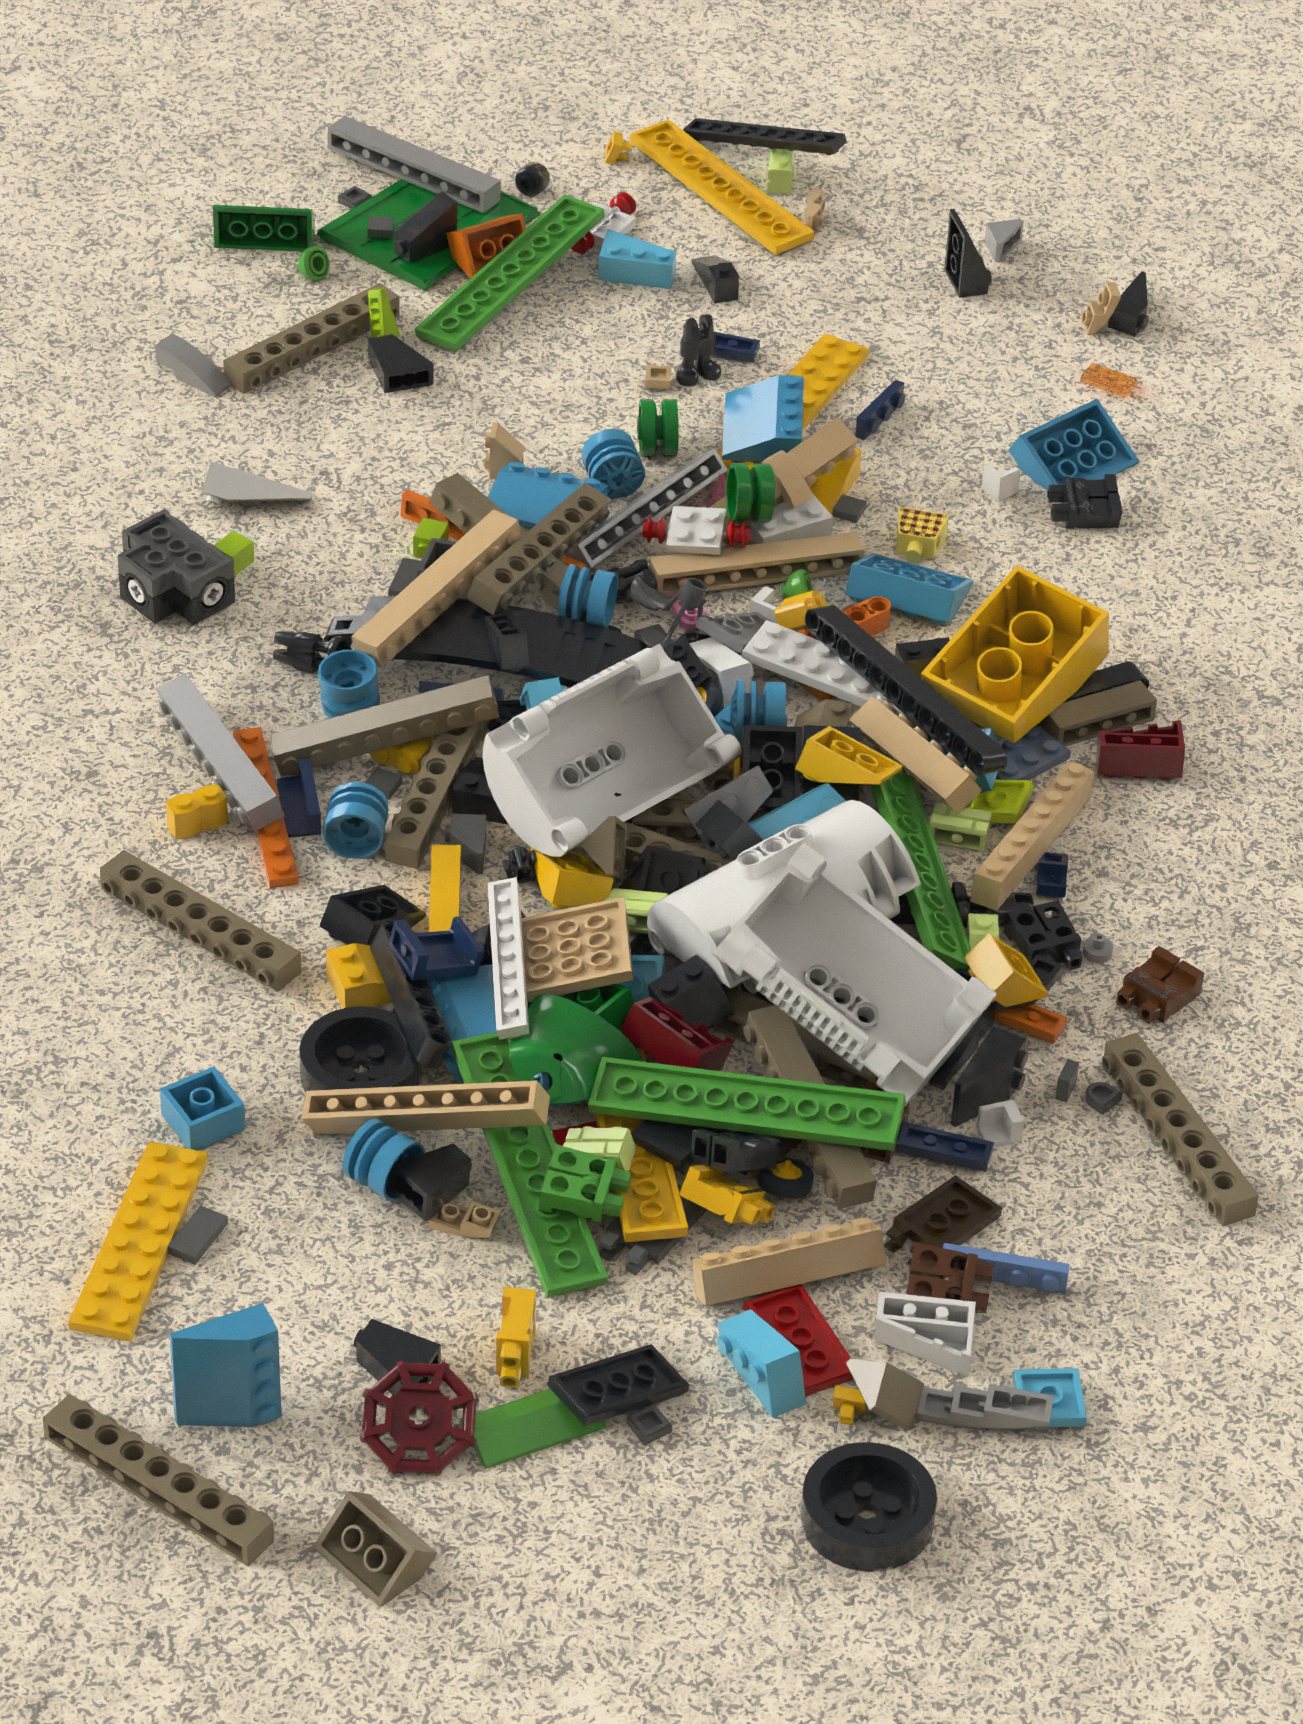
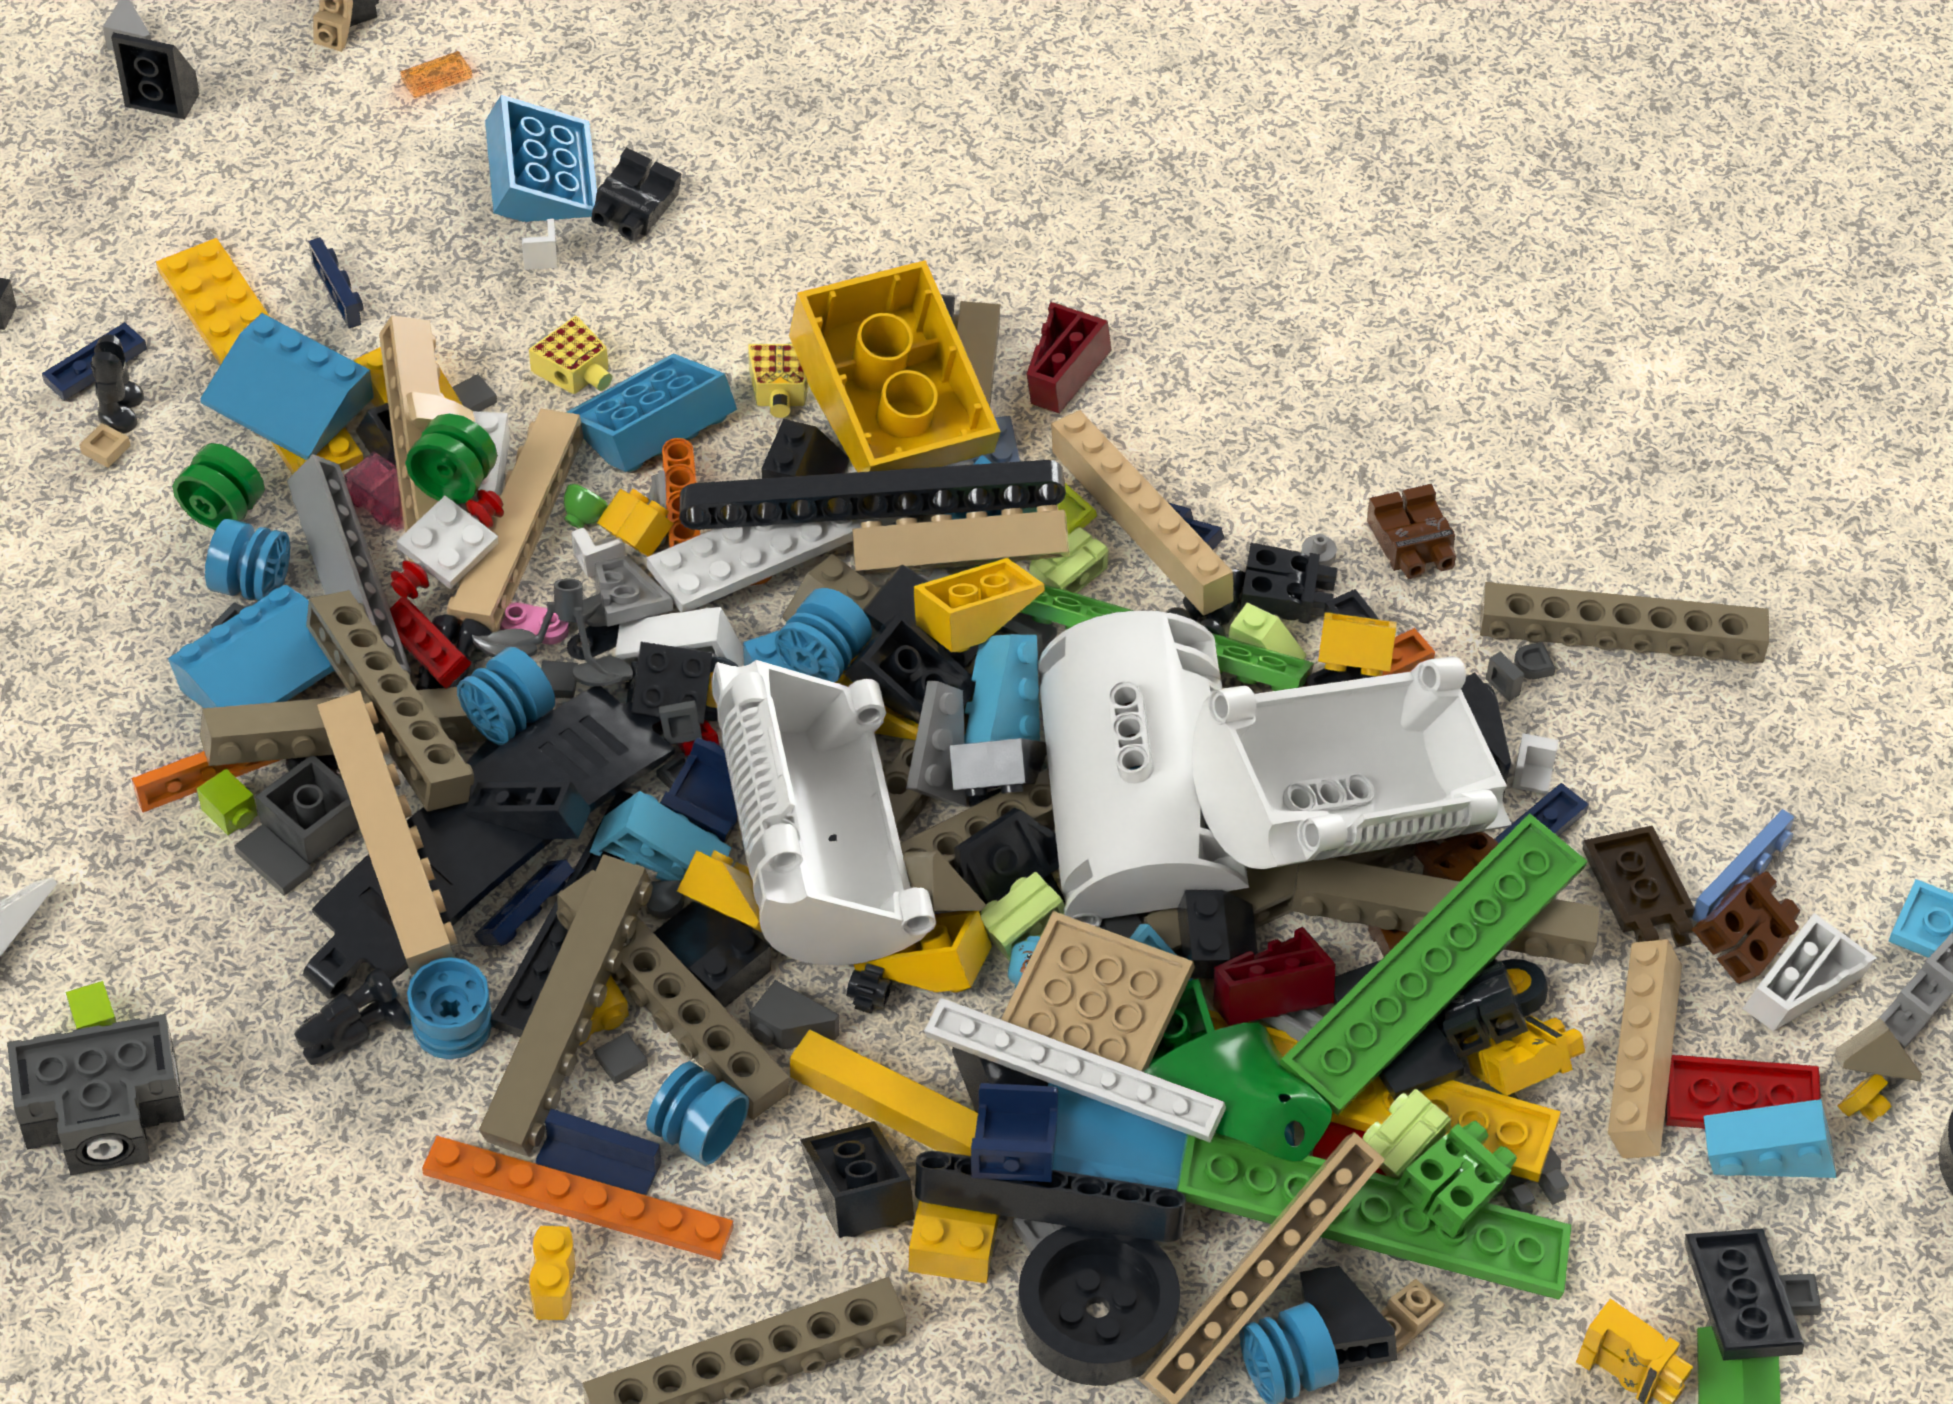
camera: 60 degrees left, 10 degrees up
(219, 753) = (467, 1198): light grey brick -> none
(503, 449) = (139, 657): tan slope -> none
(622, 558) = (428, 643): none -> red tile

